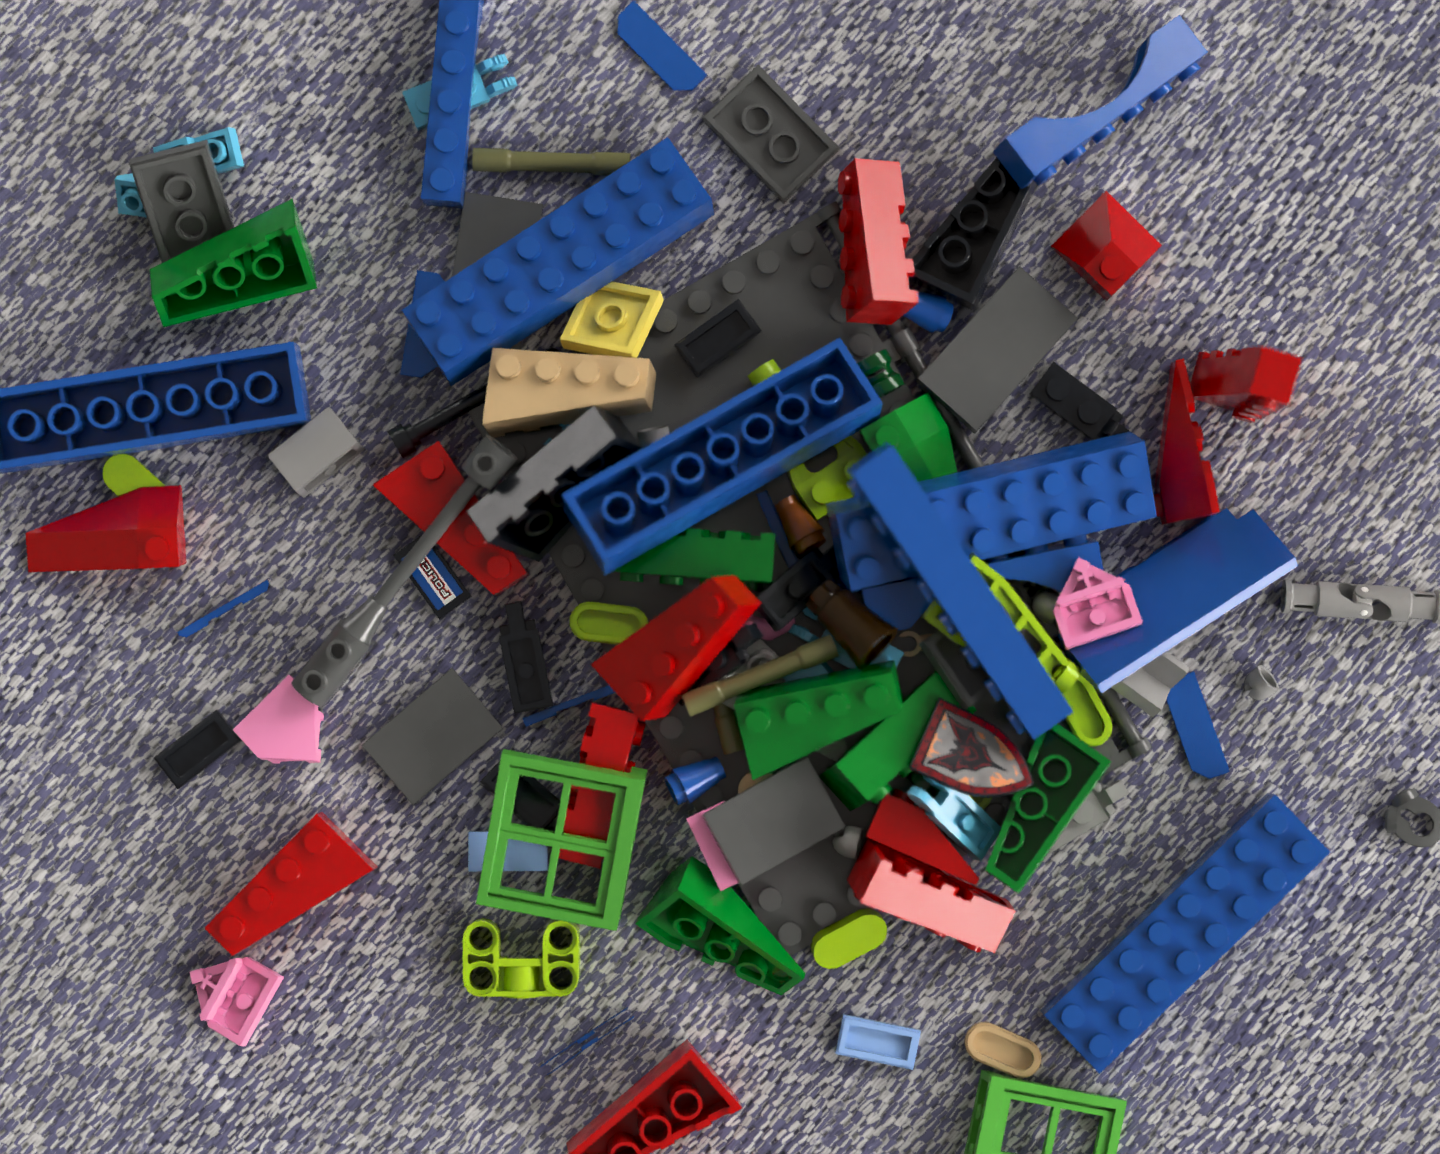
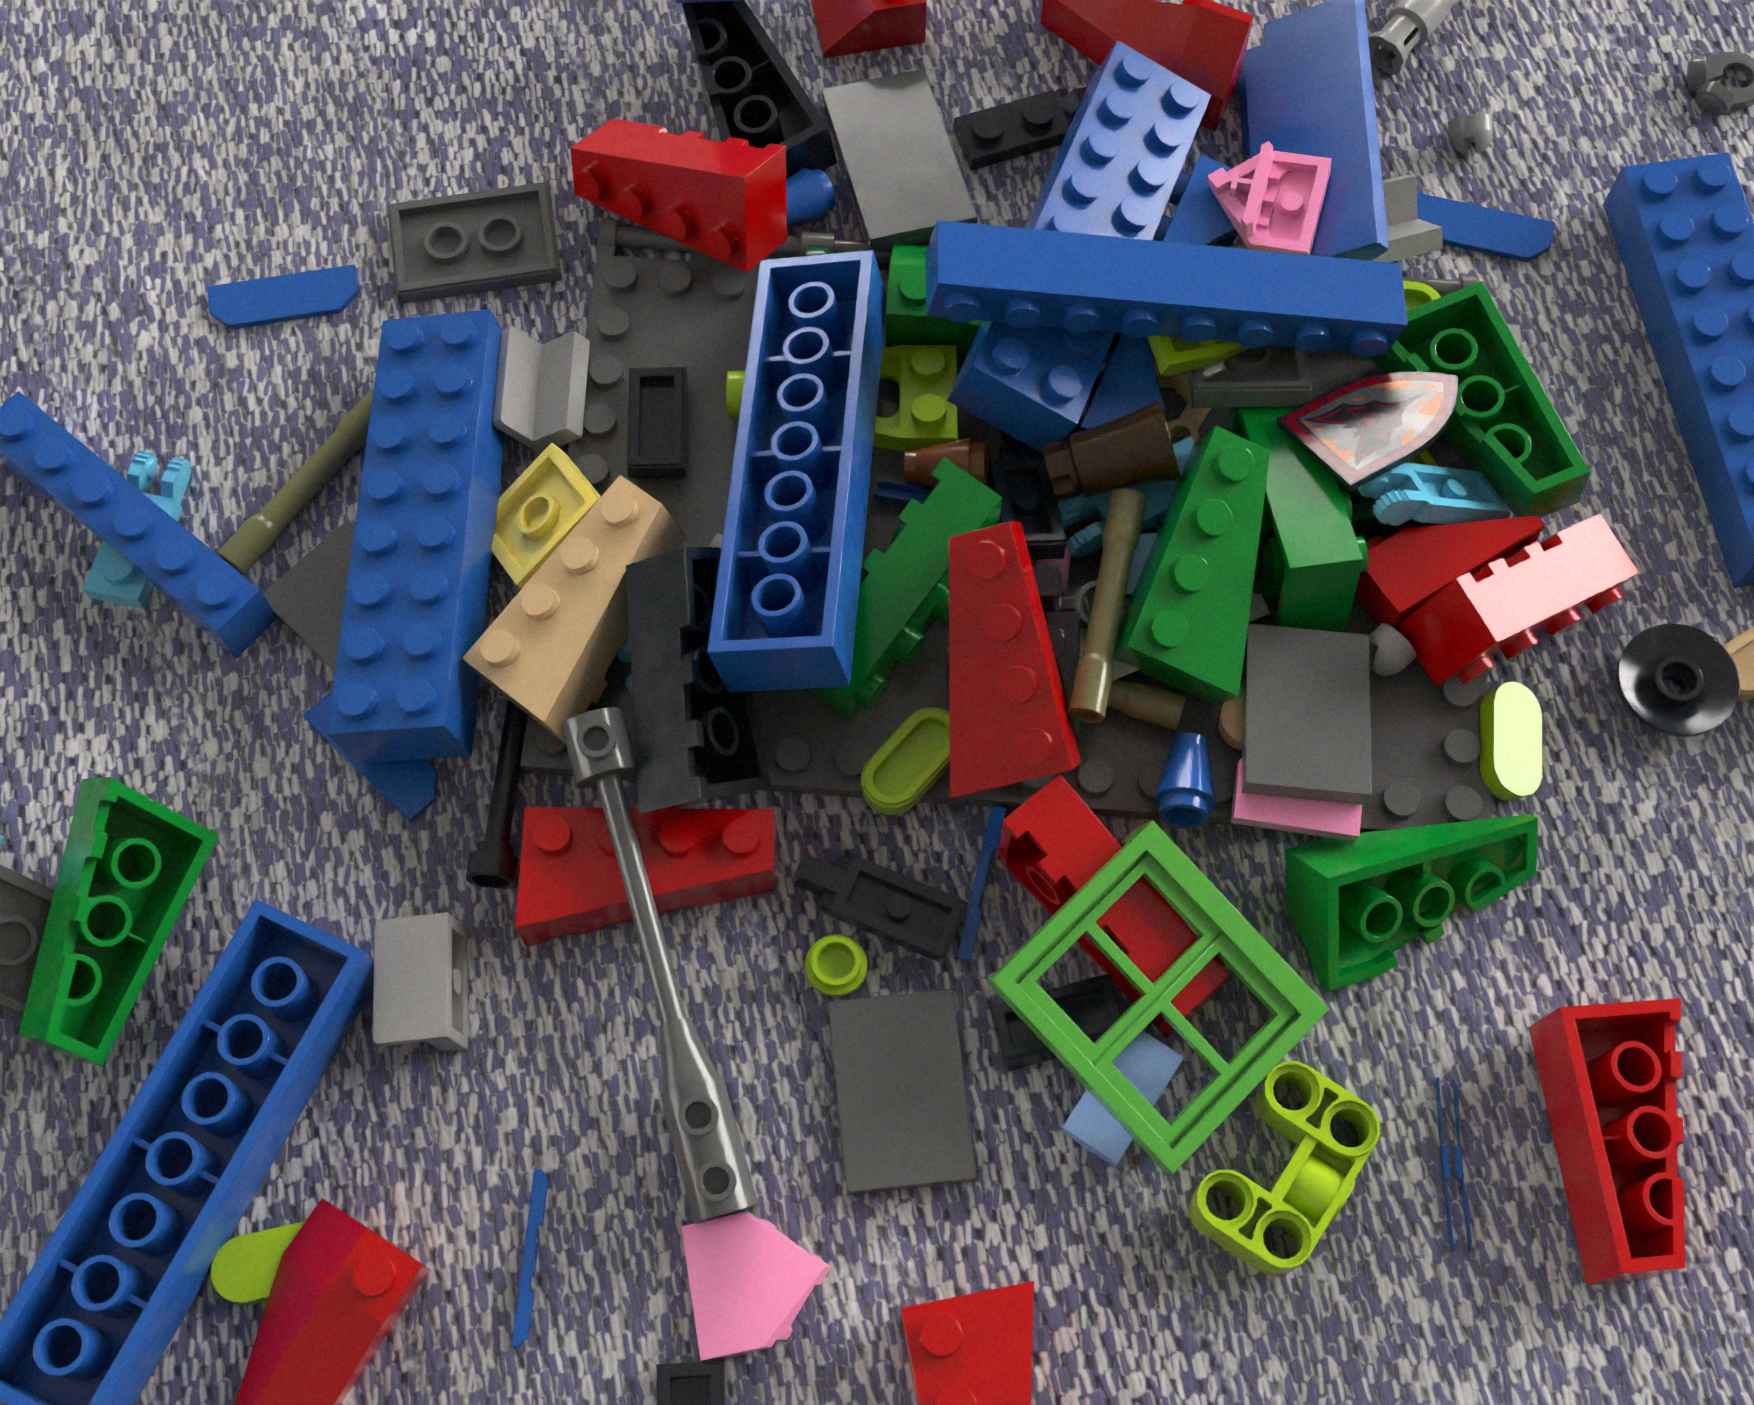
camera: 55 degrees left, 20 degrees down
(436, 581) = (700, 949): tile -> none
(475, 658) = (836, 965): none -> lime plate
(695, 254) = (541, 388): none -> light grey panel
(878, 1041) = (1669, 794): light blue tile -> none
(947, 1031) = (1694, 662): none -> black dish

